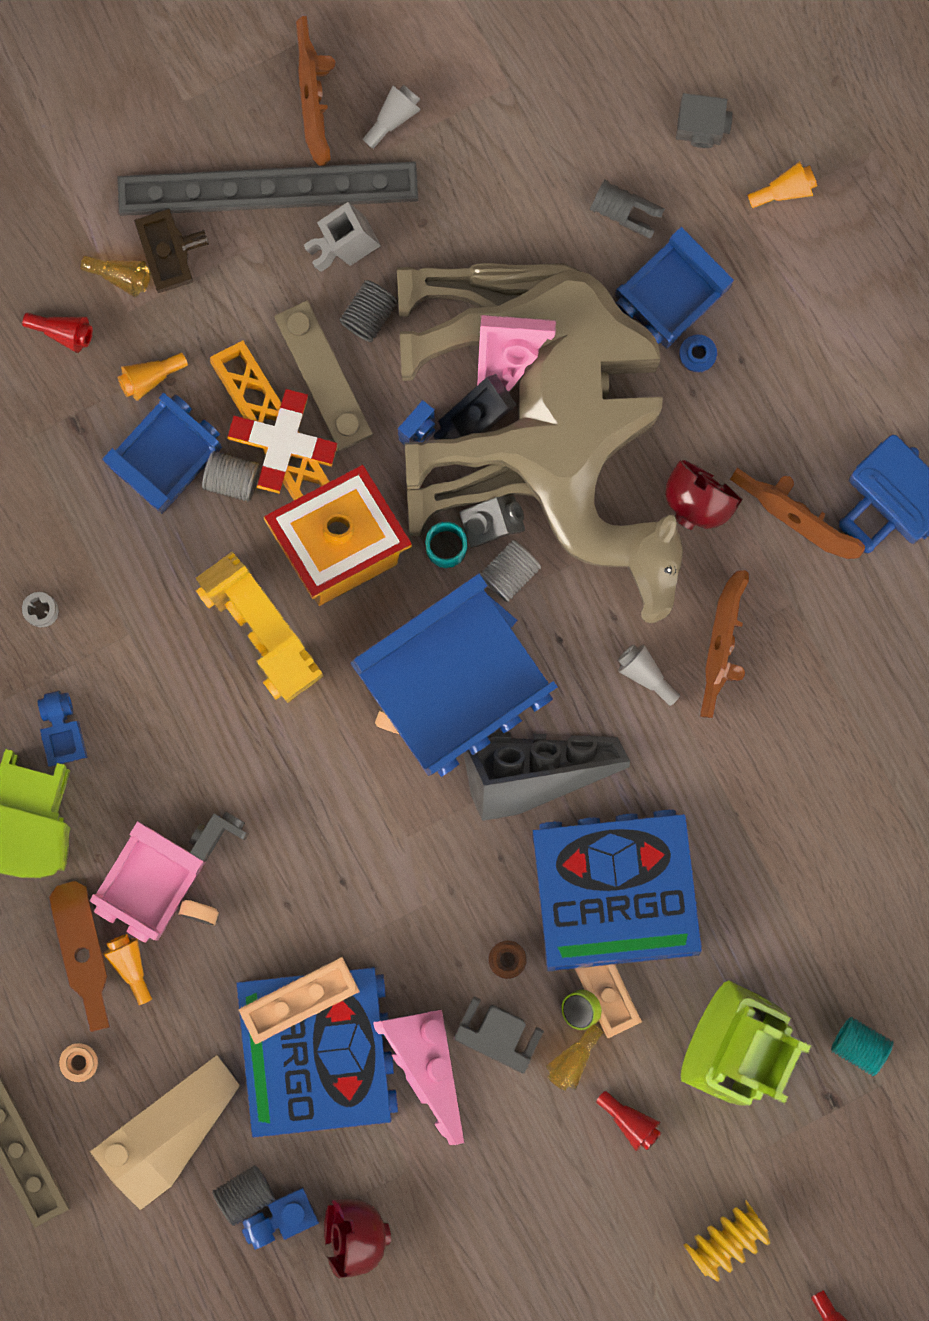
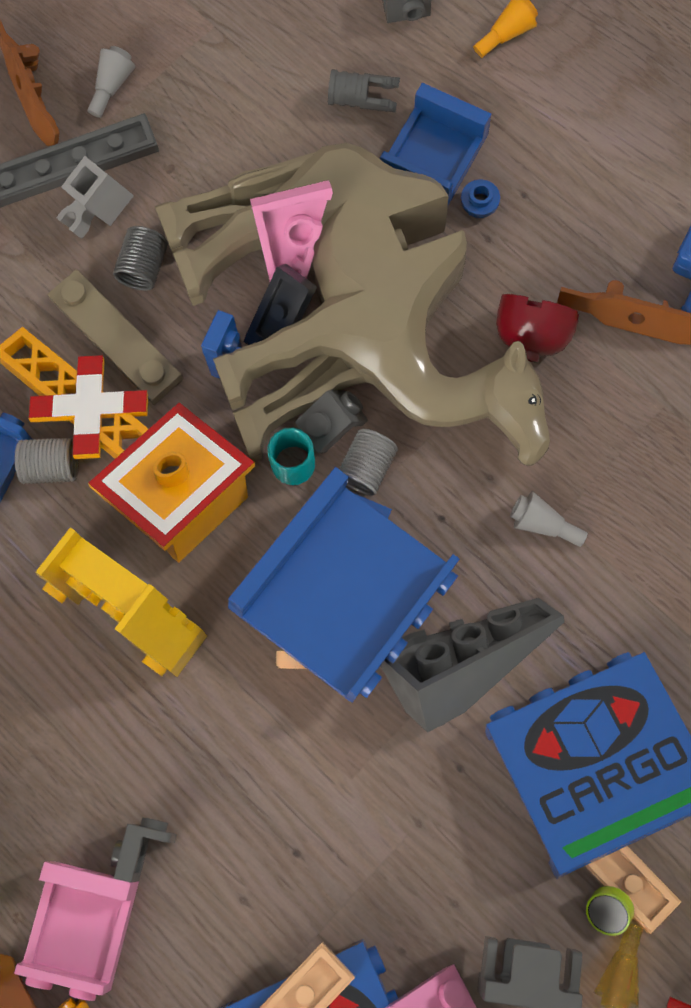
camera: 10 degrees left, 10 degrees down
(198, 912) = (145, 943): light nougat tile -> none
(512, 971) = (521, 884): reddish brown plate -> none
(723, 642) = (611, 463): dark orange piece -> none

